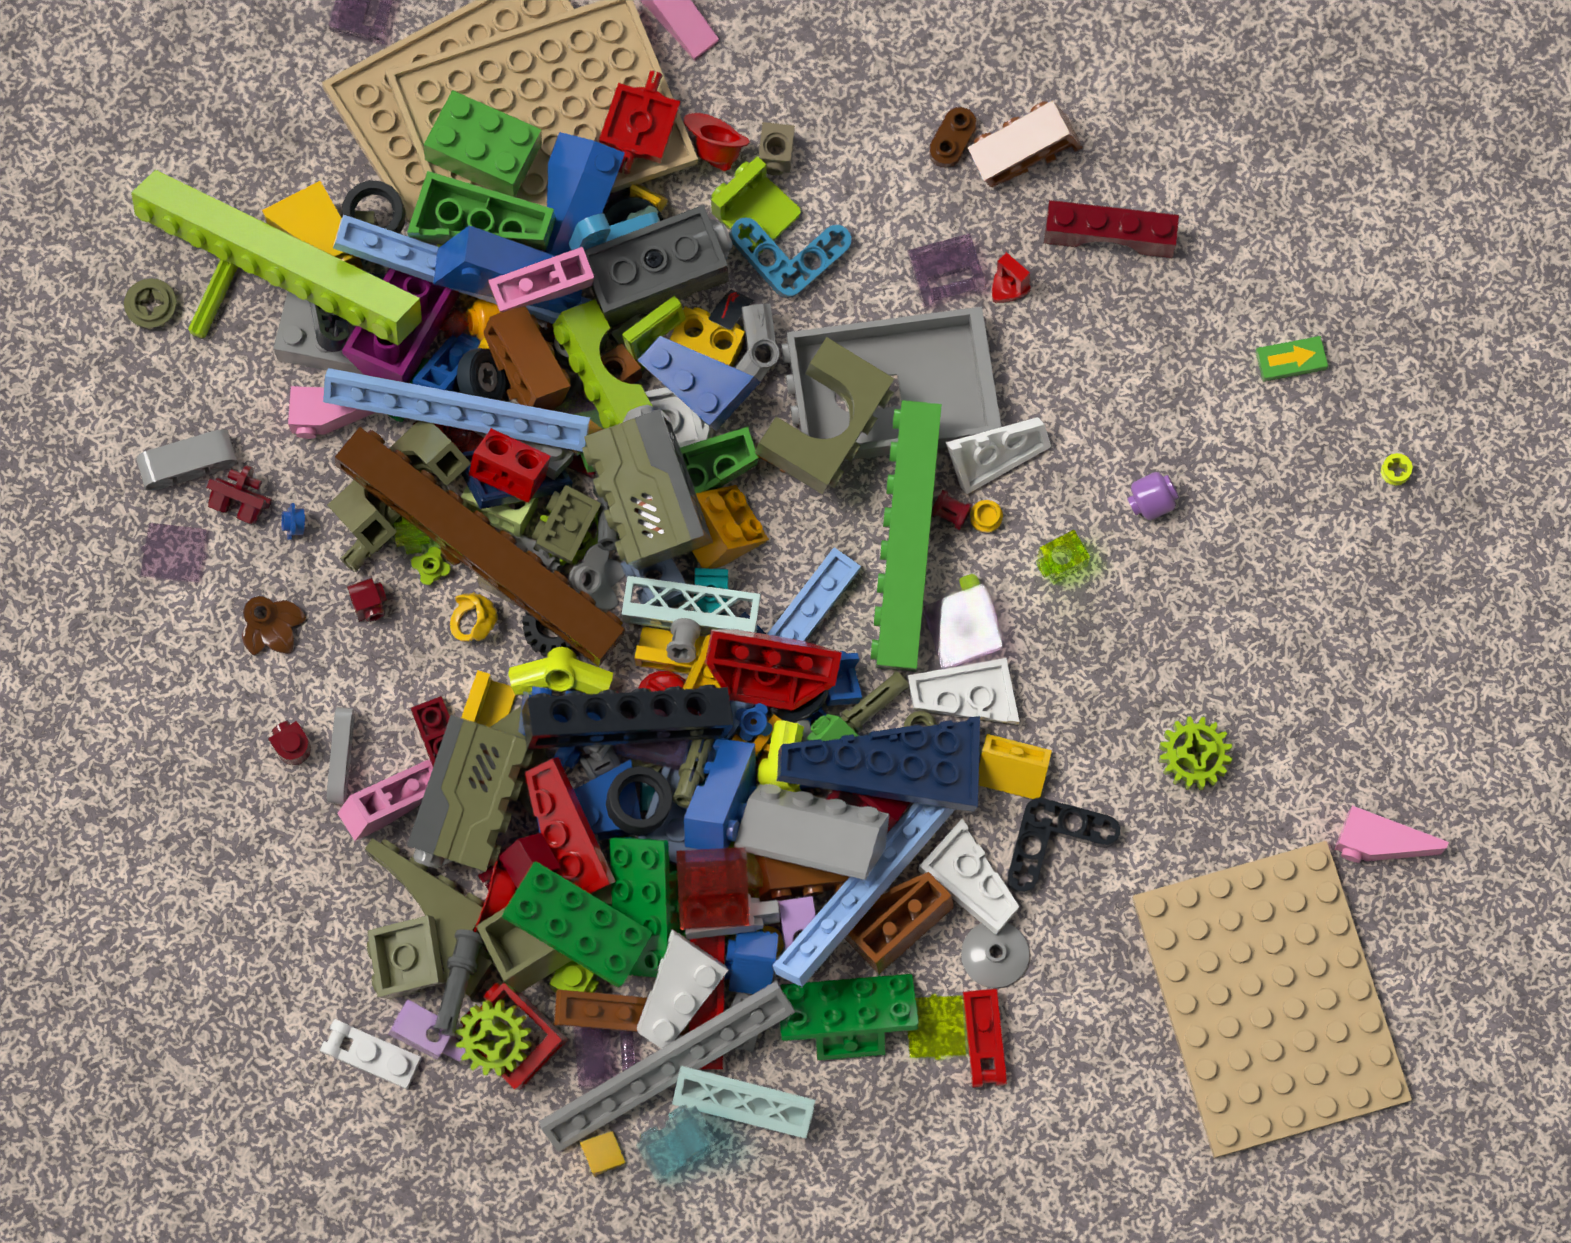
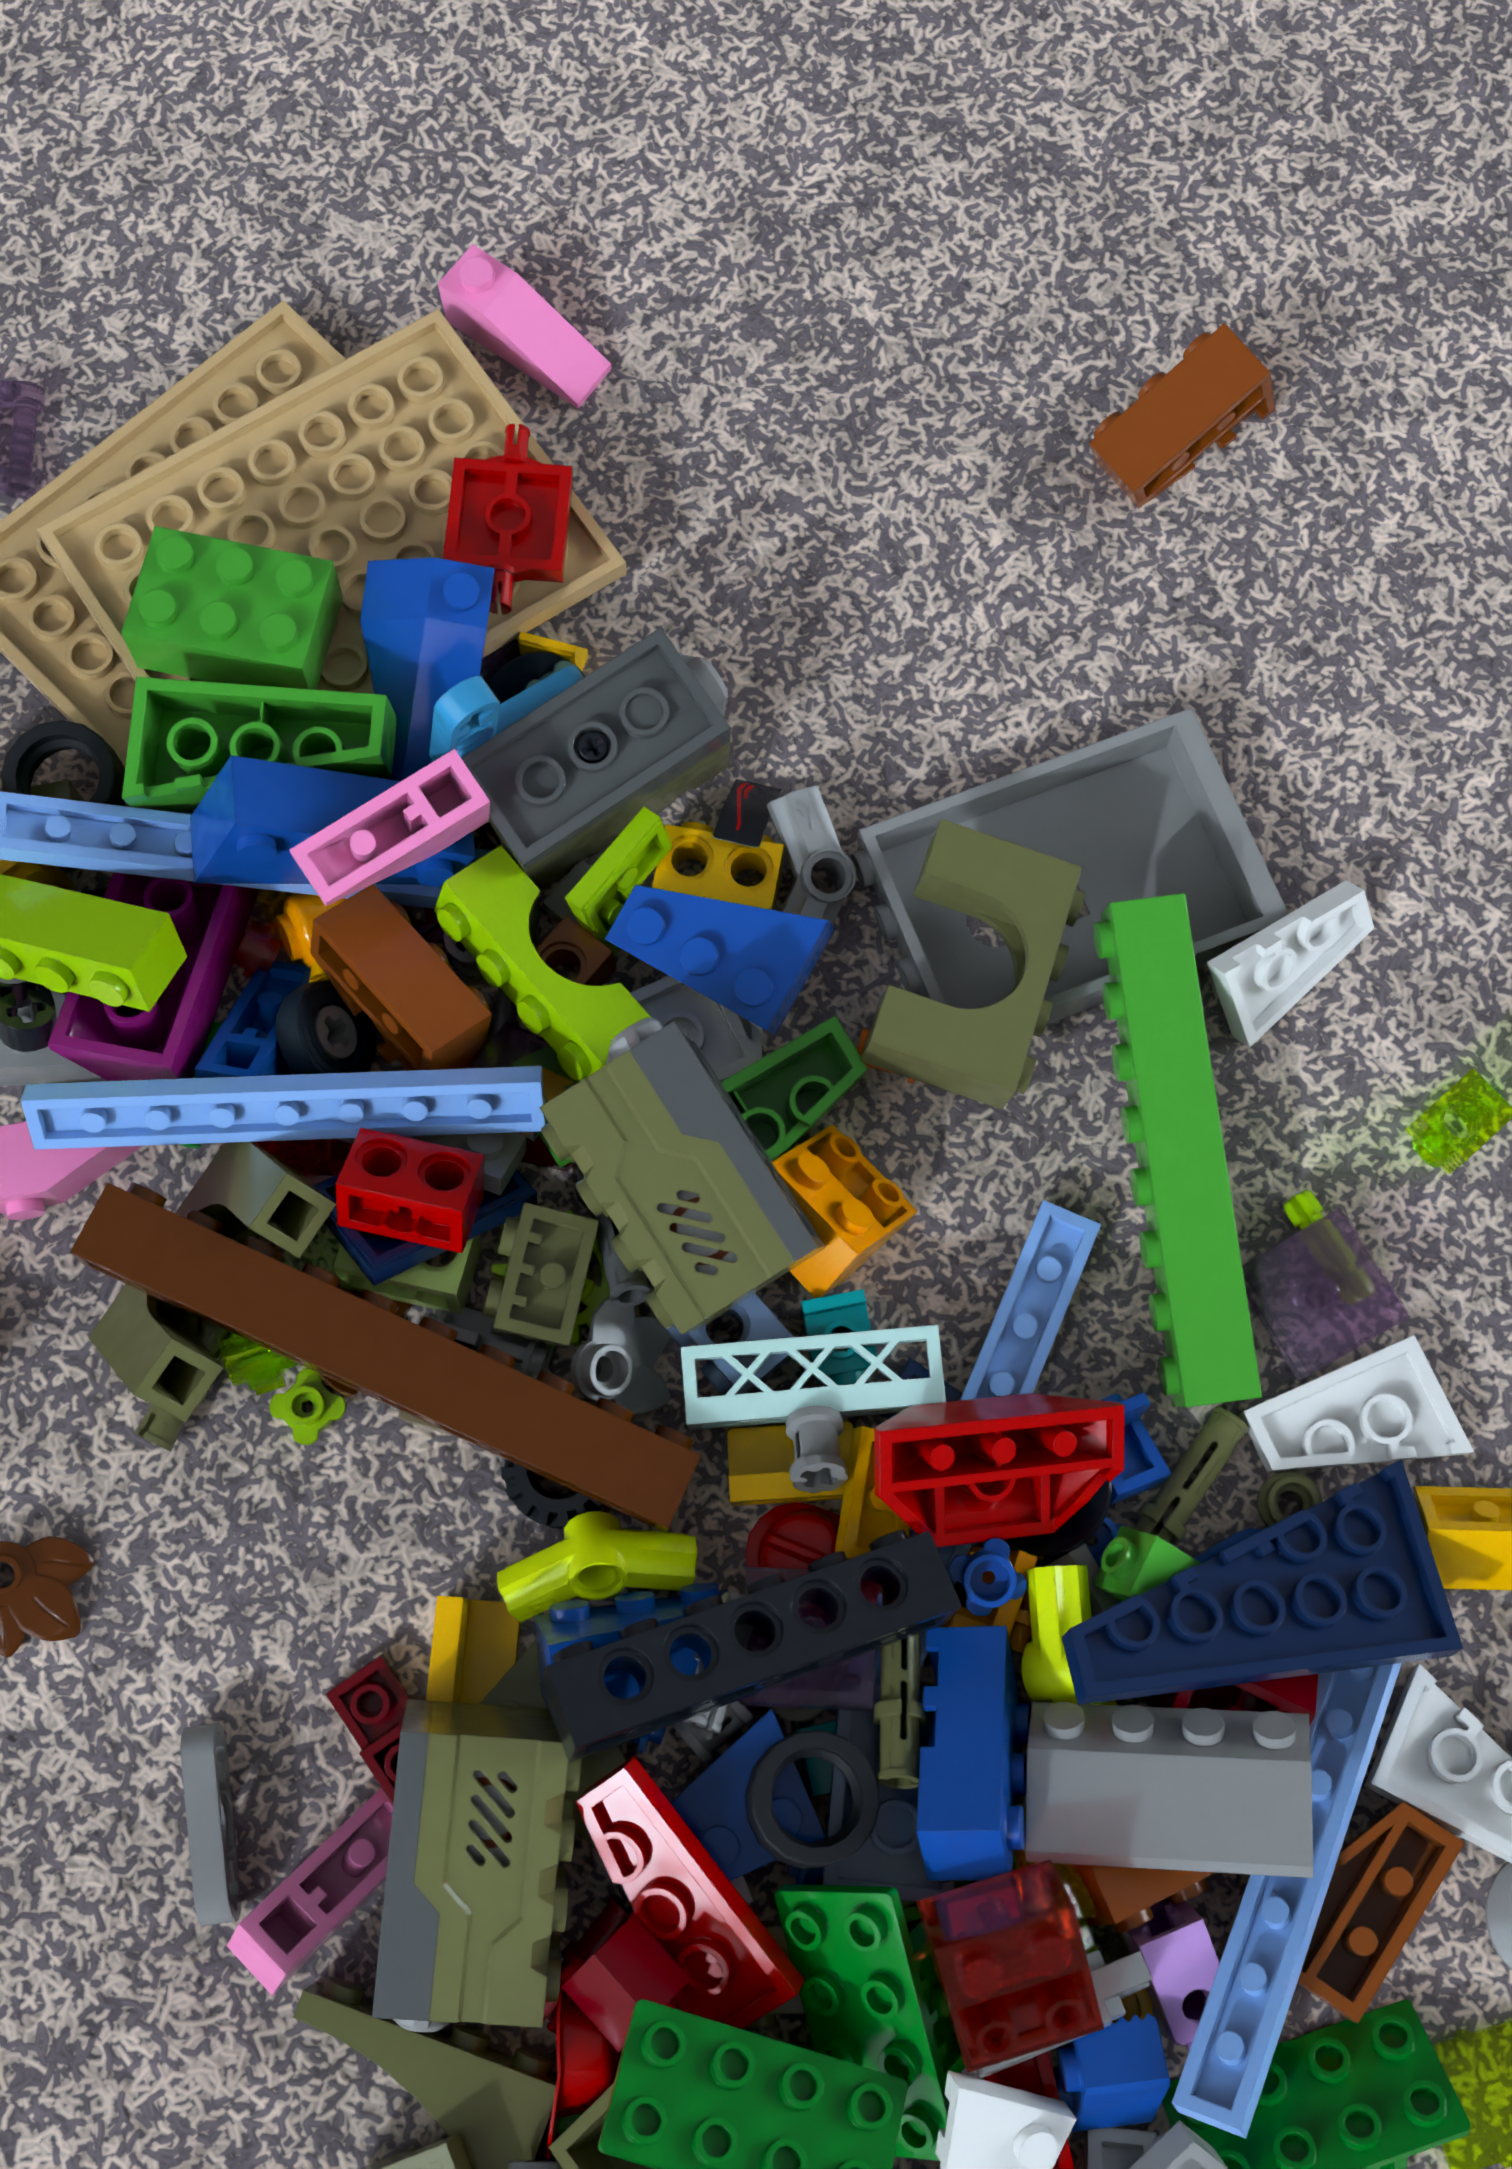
camera: 10 degrees left, 0 degrees up
(290, 743) = (109, 1820): dark red plate -> none
(293, 521) = (32, 1382): blue plate -> none
(367, 599) = (201, 1500): dark red plate -> none
(486, 616) = (429, 1477): yellow piece -> none
(715, 140) = (649, 531): red piece -> none
(754, 197) = (743, 624): lime bracket -> none
(780, 136) = (756, 498): dark tan brick -> none
(783, 264) = (819, 714): dark azure beam -> none
(944, 260) = (1097, 645): clear purple plate -> none
(951, 509) = (1240, 1082): dark red bush -> none
(952, 135) = (1053, 435): reddish brown plate -> none
(986, 516) = (1297, 1079): yellow plate -> none
(1010, 280) = (1222, 652): red tile -> none
(1079, 224) = (1429, 518): dark red arch -> none

